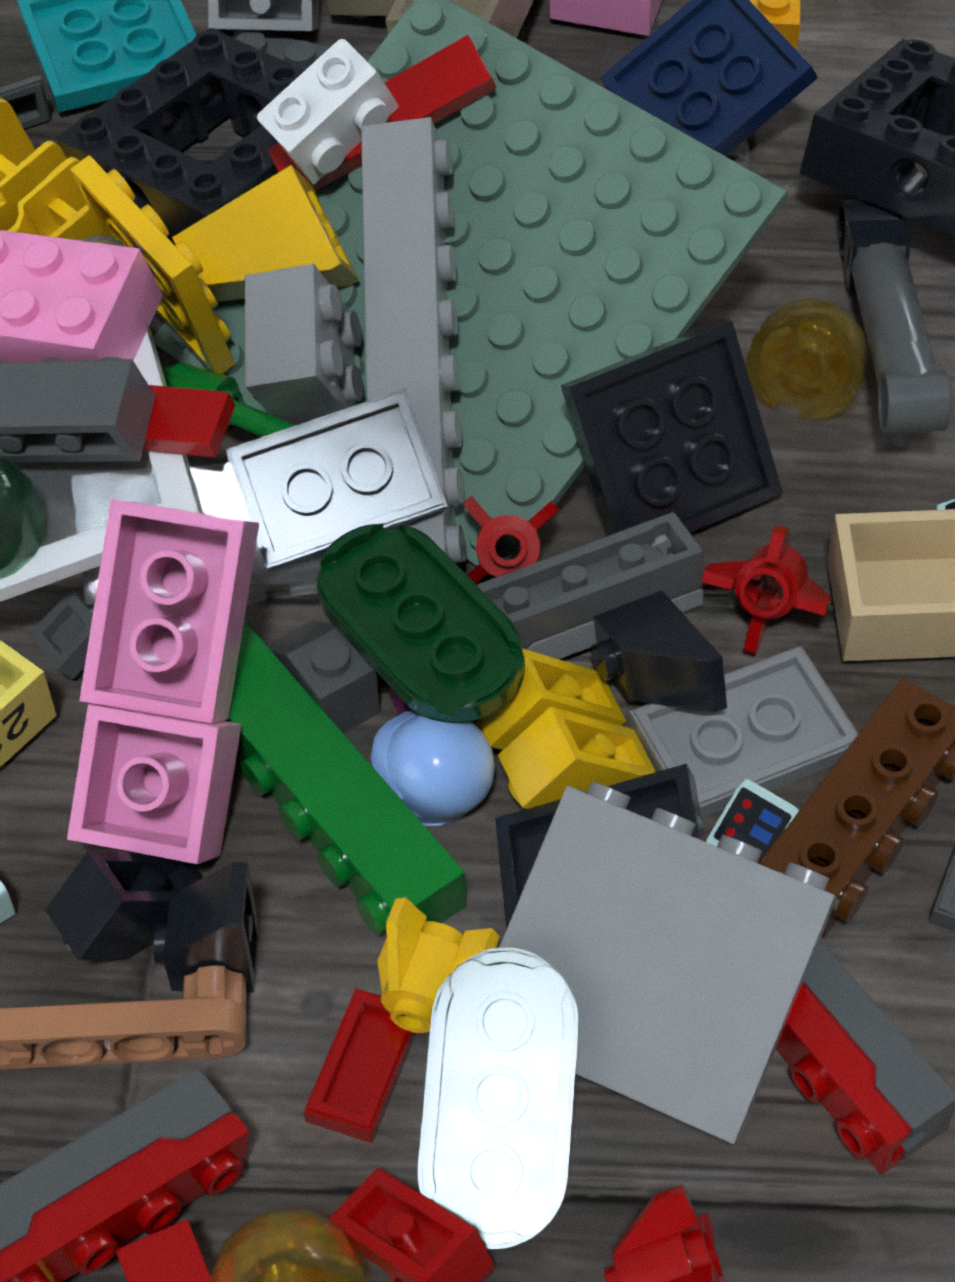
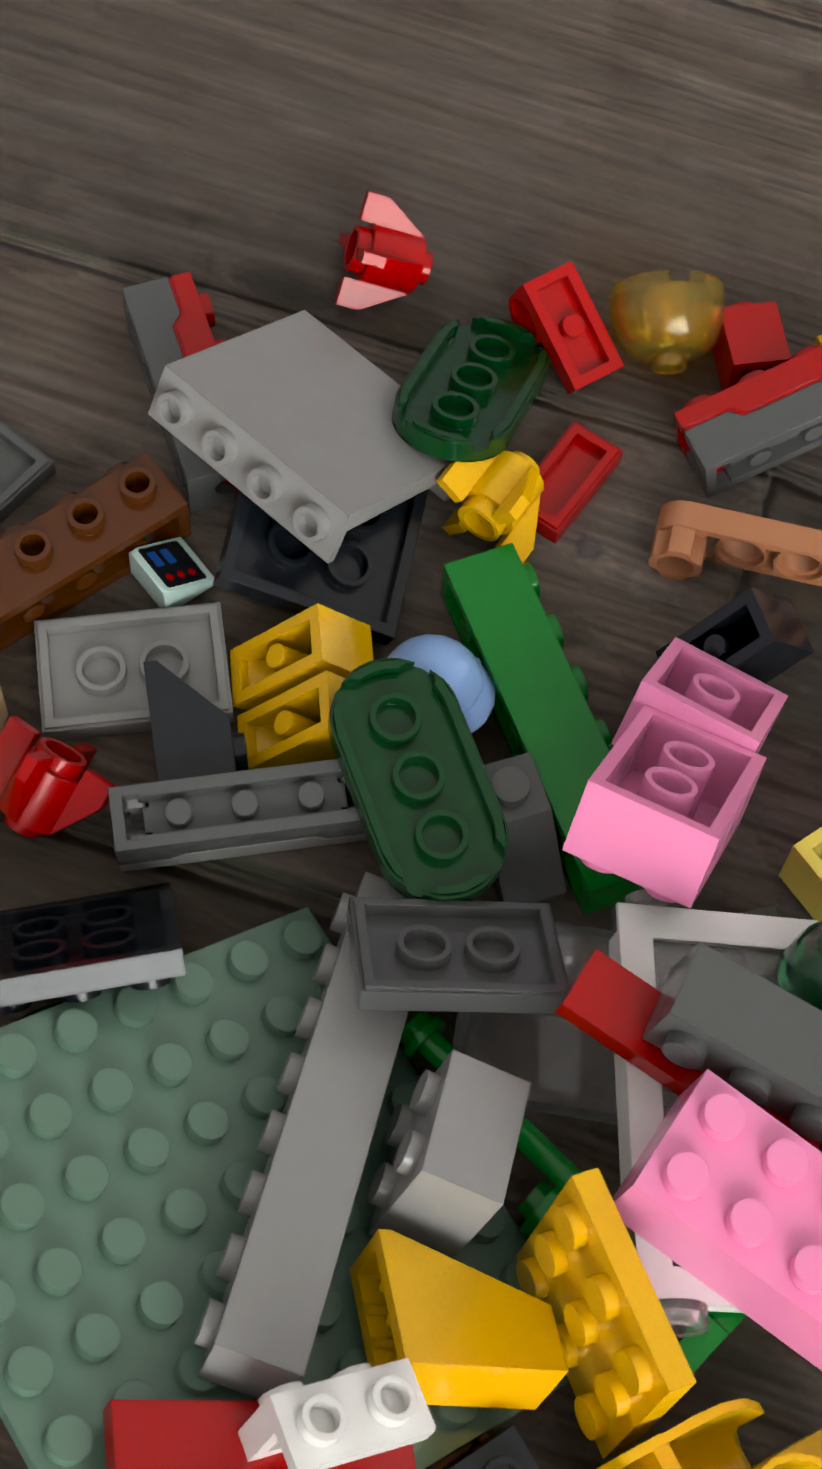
camera: 170 degrees left, 10 degrees up
(211, 926) = (673, 581): black slope -> none
(508, 525) = (291, 887): red brick -> none

